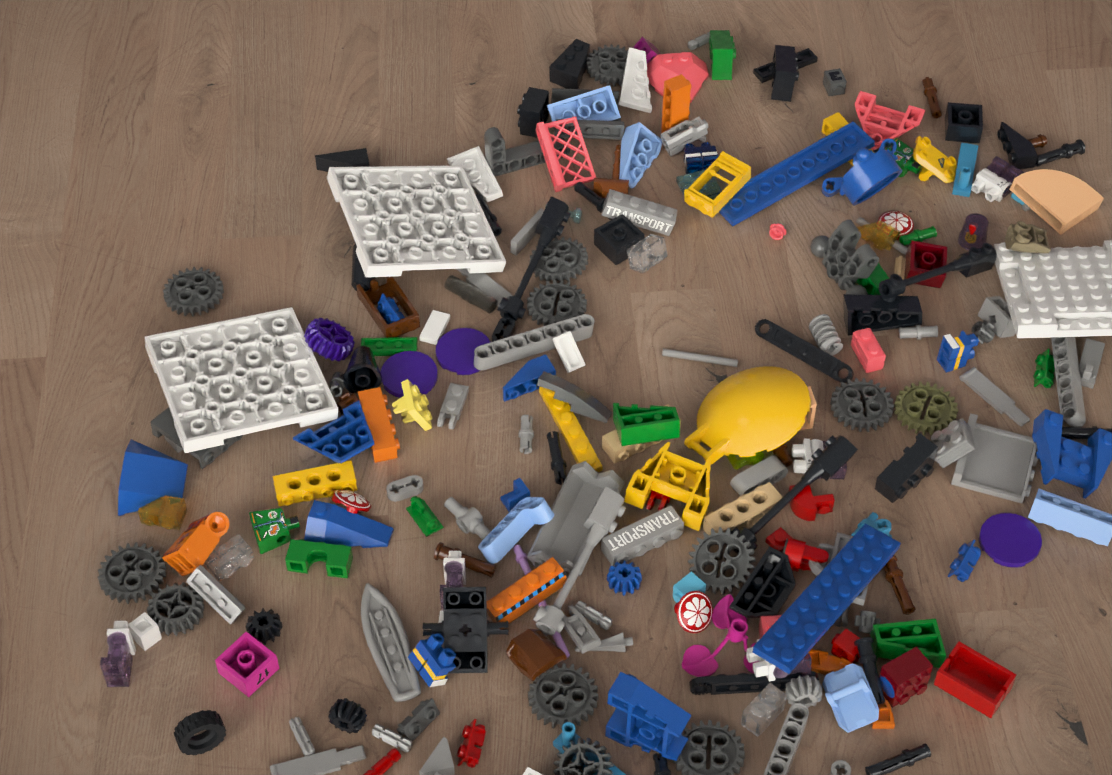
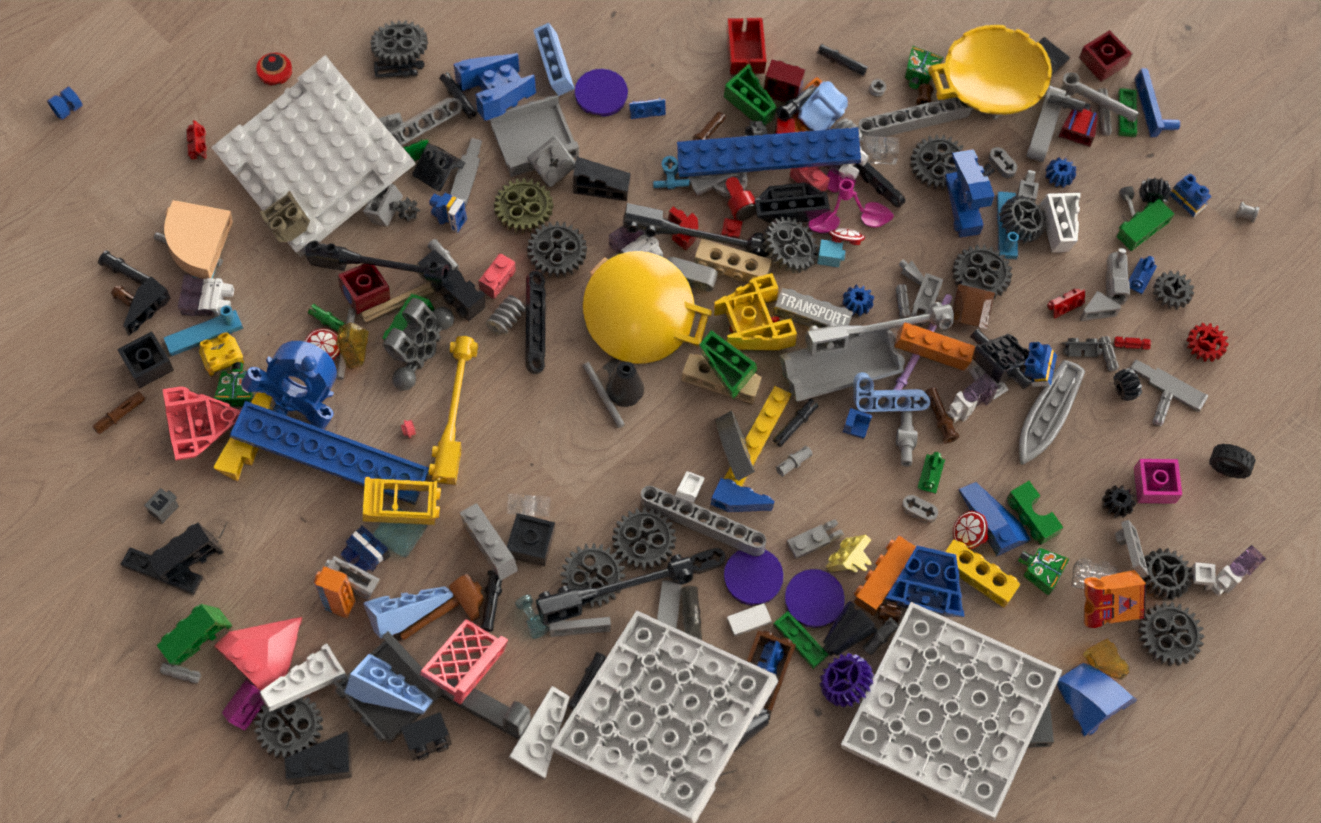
camera: 135 degrees left, 15 degrees up
(693, 367) = (625, 385): none -> black cone
(734, 239) = (448, 451): none -> yellow bar
(973, 231) = (290, 278): clear purple hat -> none
(1016, 376) = (436, 166): none -> black bracket

